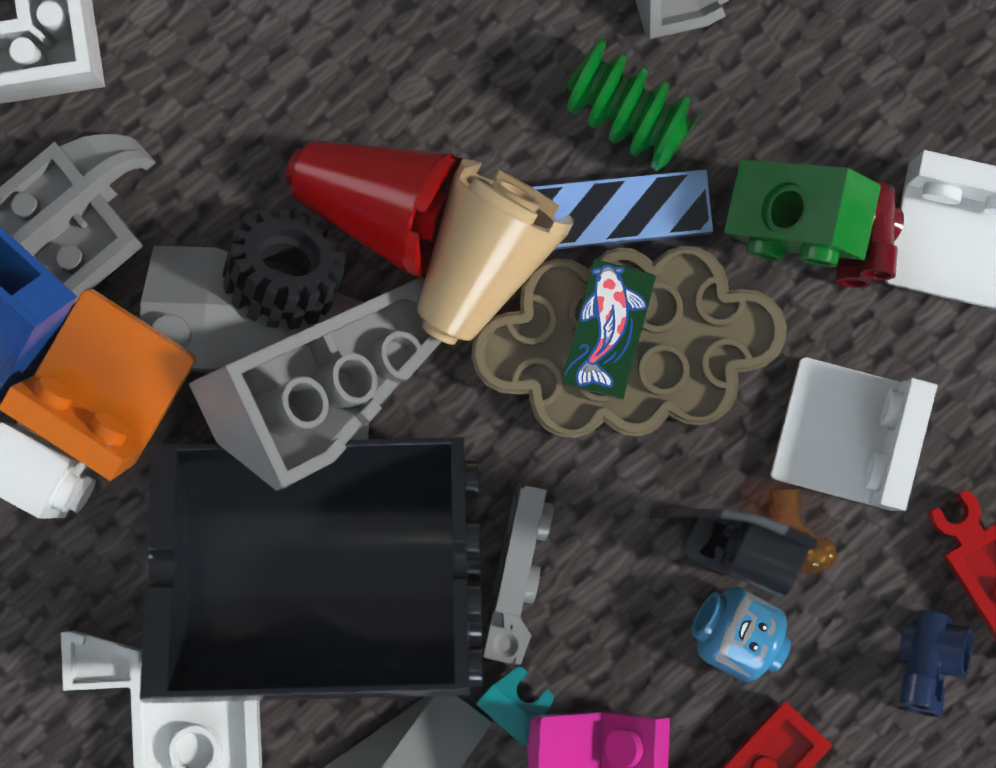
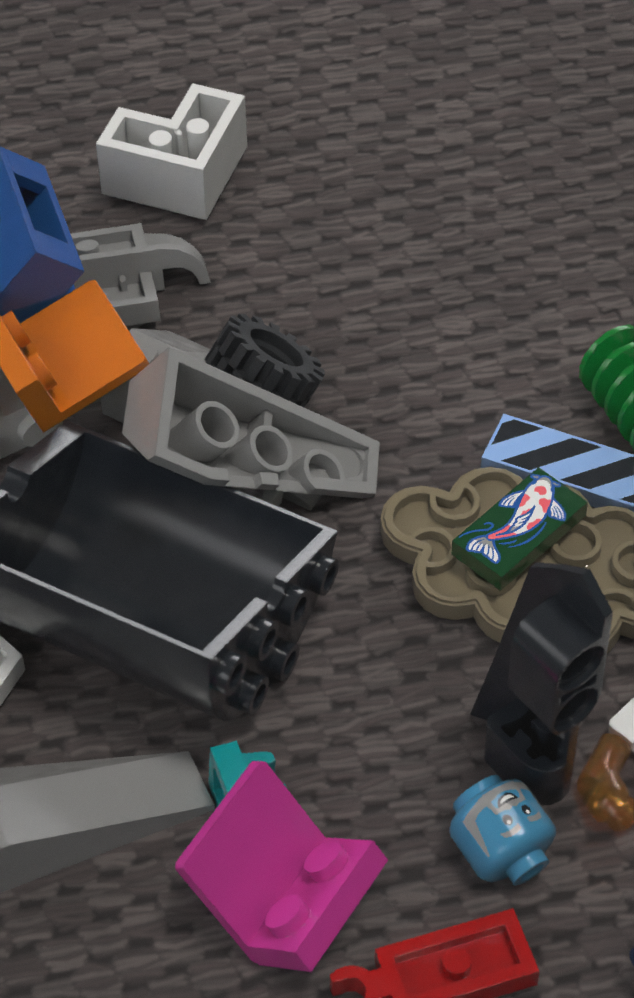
camera: 30 degrees right, 35 degrees down
(377, 195) = (390, 364): red cone -> none
(485, 250) = (445, 419): tan cone -> none
(515, 576) = (317, 681): light grey hinge -> none

